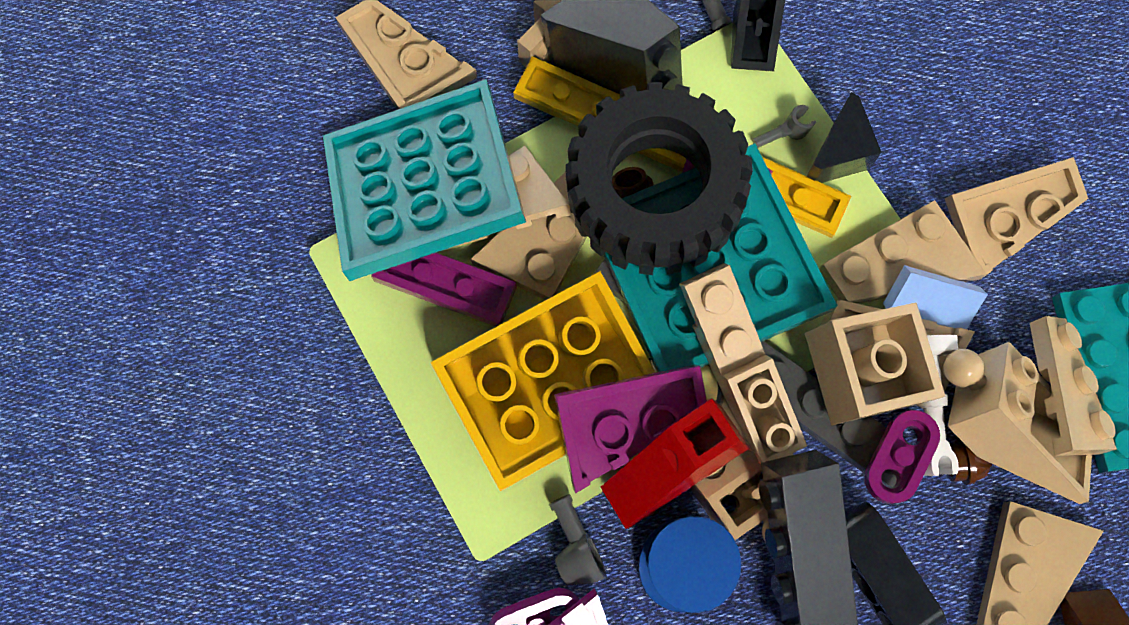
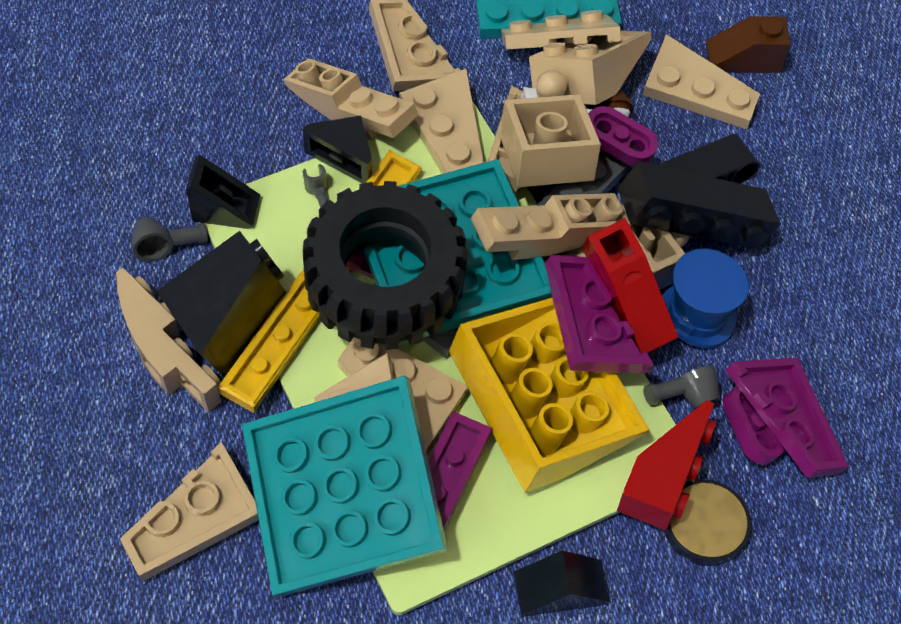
camera: 90 degrees left, 15 degrees down
(341, 412) = (560, 584): none -> black slope
(418, 567) = (712, 524): none -> pearl gold tile
(452, 506) = (661, 470): none -> red slope
(917, 148) = (341, 95): none -> tan slope
(937, 297) = (484, 105): light blue tile -> none

